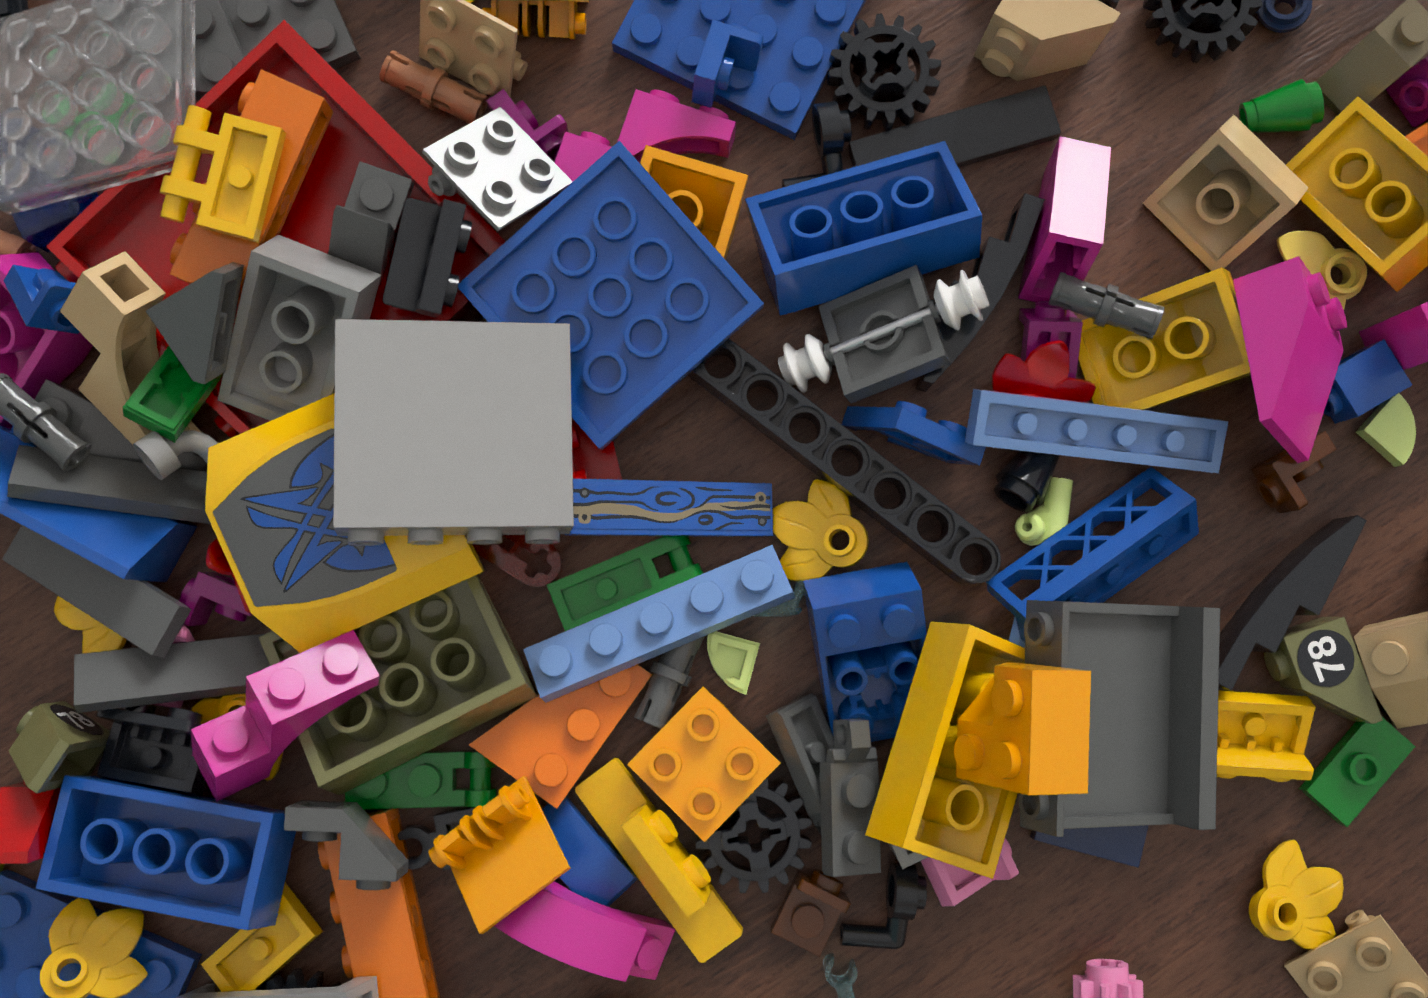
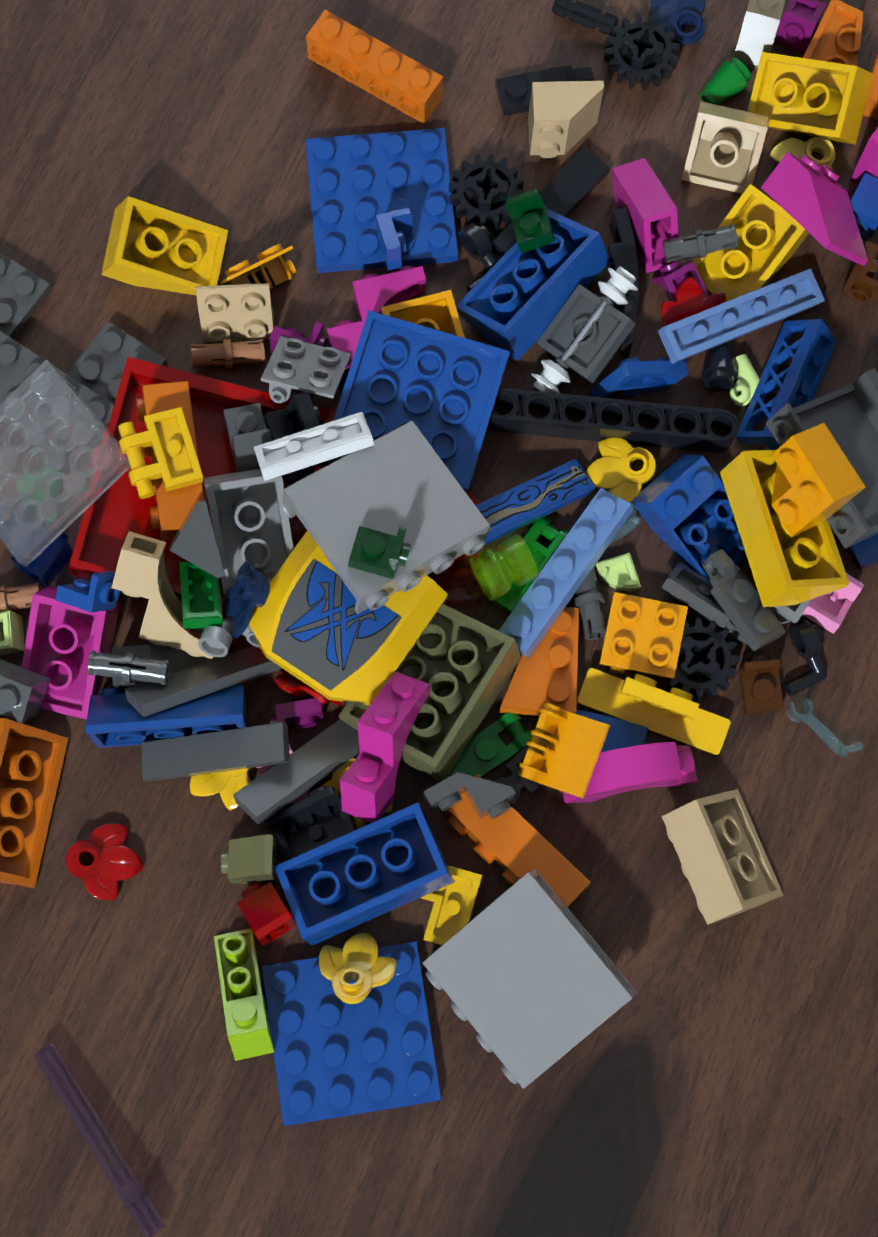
camera: 30 degrees left, 10 degrees down
(223, 423) = (241, 598): none -> dark blue plate
(395, 480) = (379, 551): none -> dark green bracket
(419, 282) = (313, 446): none -> white tile
(581, 575) = (499, 569): none -> clear neon green wheel
(909, 144) = (530, 220): none -> dark green bracket

